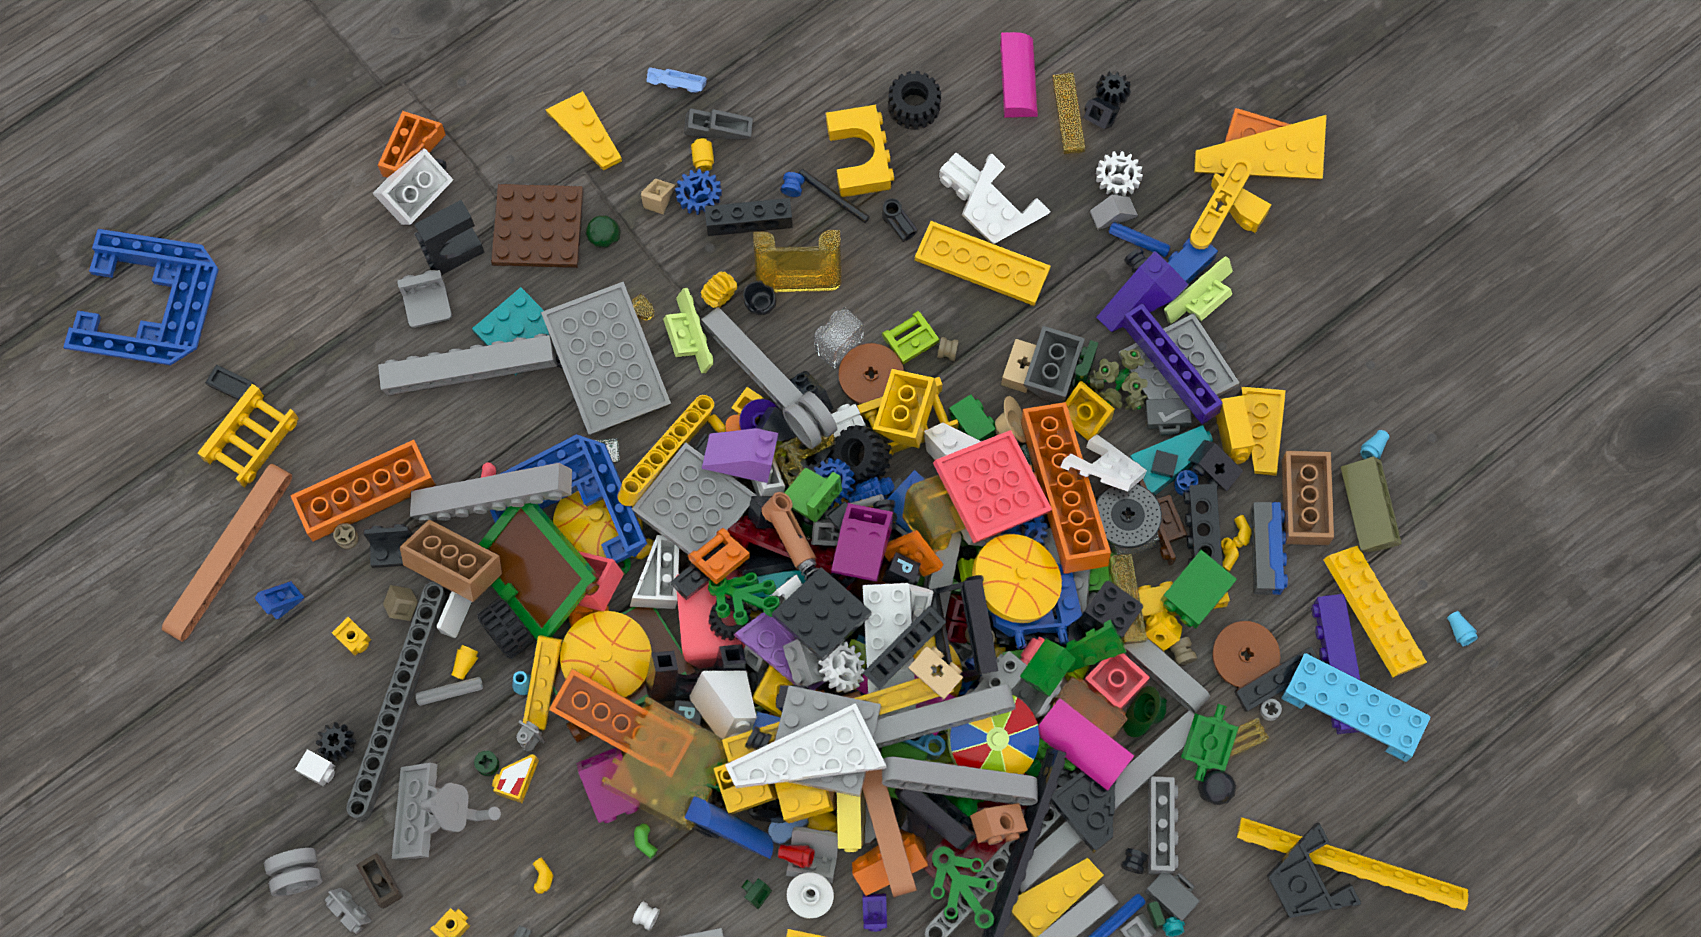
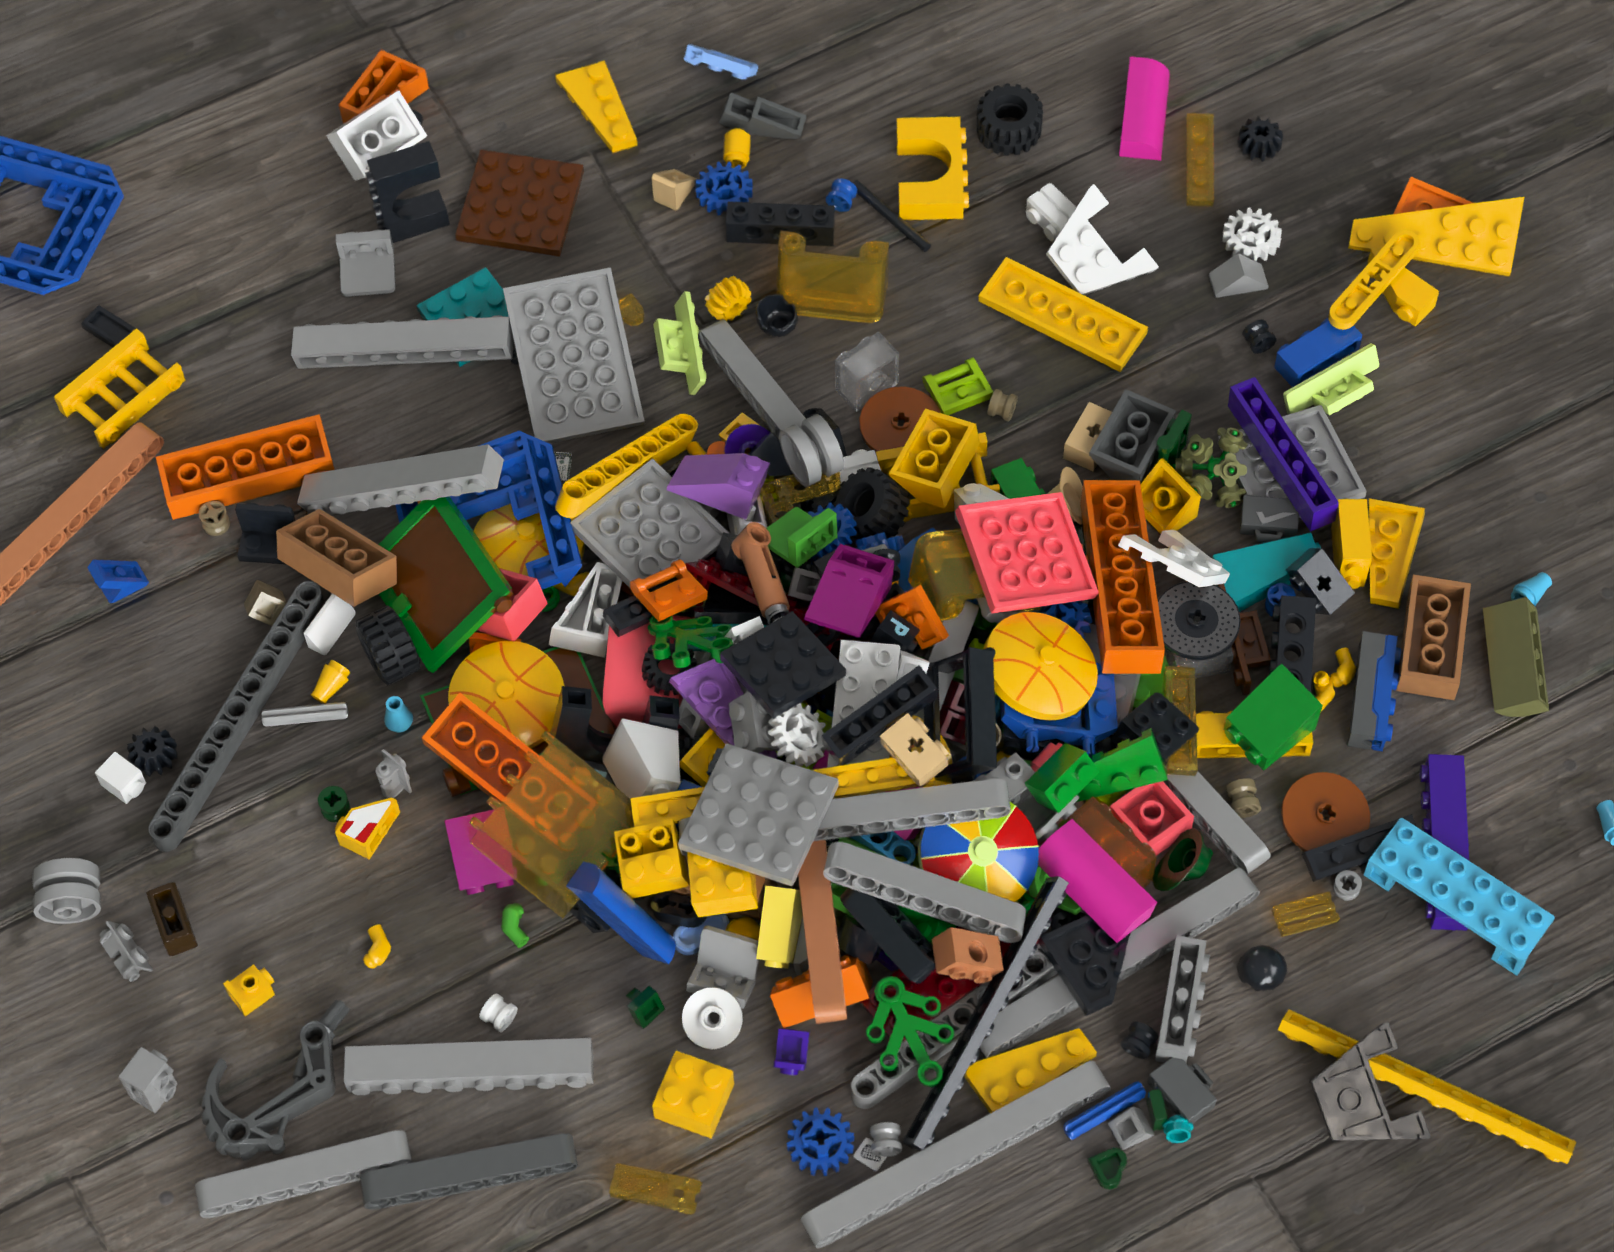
camera: 10 degrees right, 10 degrees down
(346, 630) = (197, 632): yellow brick -> none
(427, 808) = (251, 834): light grey plate -> none
(542, 681) = (422, 712): yellow tile -> none
(603, 231) = (598, 218): dark green hair -> none
(757, 739) = (675, 802): black wheel -> none
(797, 854) = (705, 965): red cone -> none
(822, 749) = (752, 817): white wing -> none
(899, 221) = (966, 251): black piece -> none
(1094, 115) = (1244, 170): black brick -> none
(1139, 239) = (1266, 312): blue axle -> none
(1151, 285) = (1272, 357): dark purple wedge -> none
(1163, 629) = (1221, 765): yellow brick -> none
(1164, 464) = (1254, 569): black tile -> none
(1209, 742) = (1260, 907): green plate -> none
(1375, 611) = (1501, 784): yellow plate -> none

